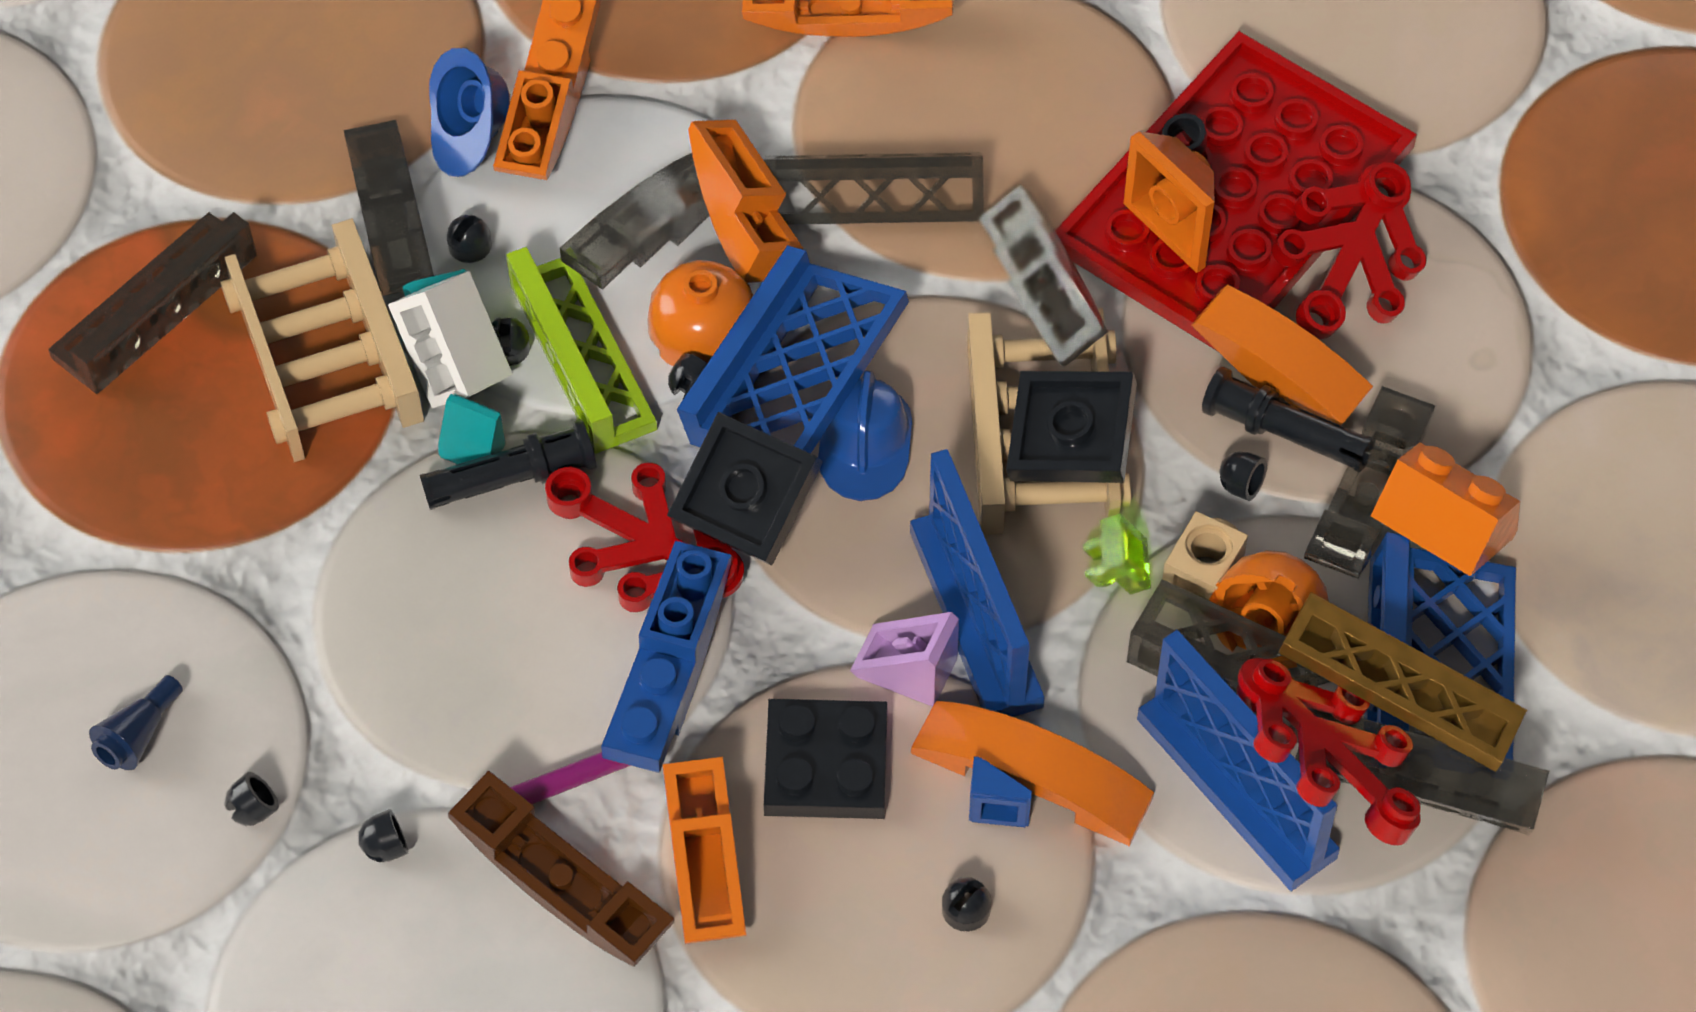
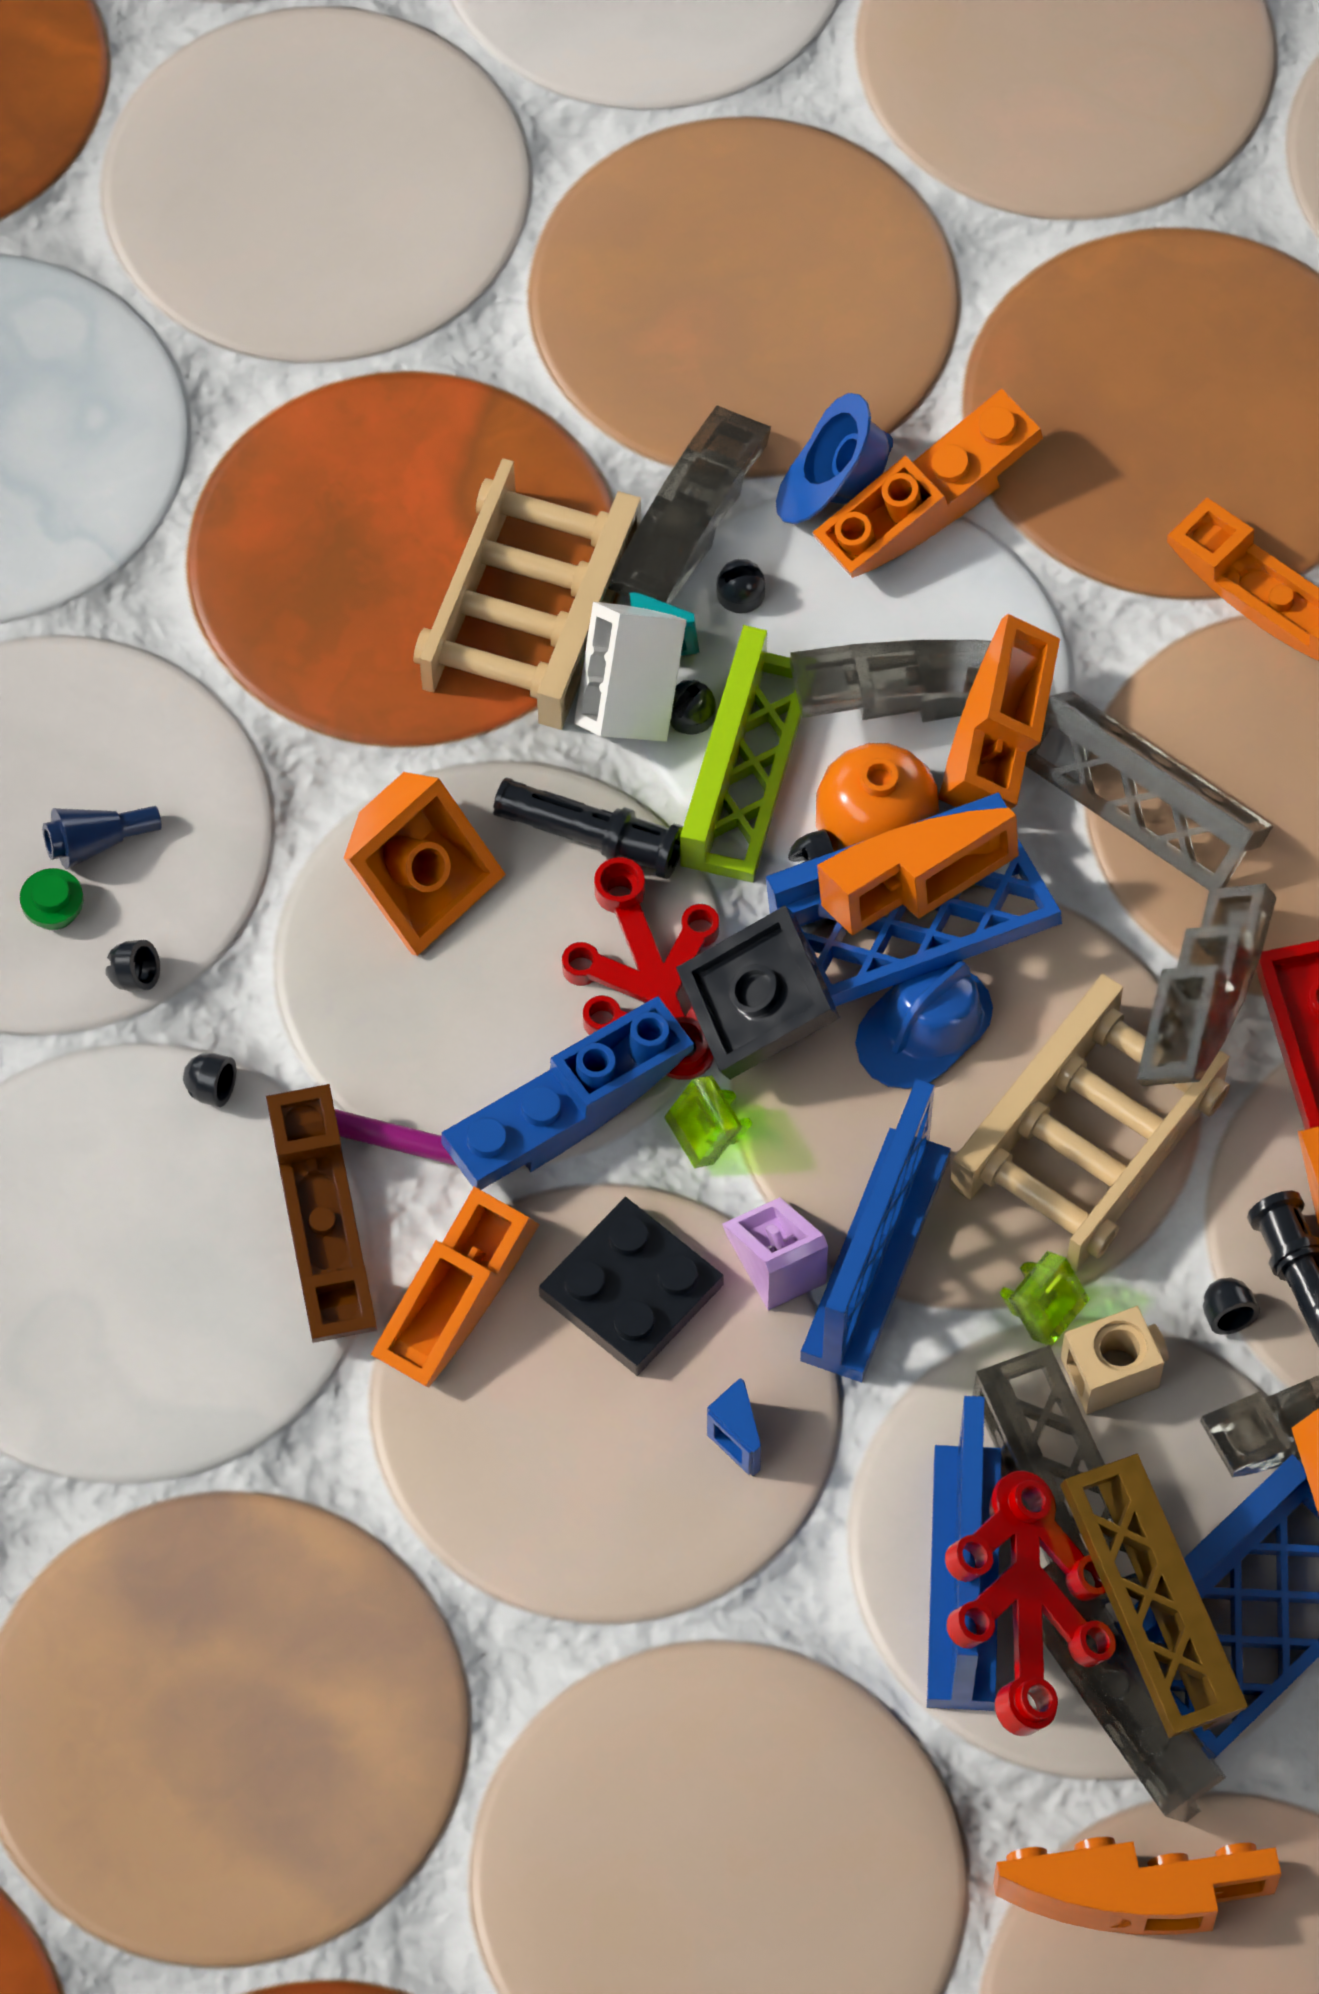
camera: 40 degrees right, 5 degrees up
(142, 797) = (51, 898): none -> green plate
(153, 301) = (424, 455): clear smoke fence -> none
(406, 568) = (420, 858): none -> orange slope
(469, 430) = (582, 769): teal slope -> none
(778, 607) = (705, 1121): none -> clear neon green tile
(780, 328) = (916, 866): none -> orange slope
(975, 910) = (636, 1512): black hinge -> none
(1042, 761) = (801, 1431): orange slope -> none
(1072, 426) = (1091, 1146): black plate -> none
(1269, 591) = (1140, 1419): orange cylinder -> none
(1544, 906) = (1108, 1892): none -> orange slope

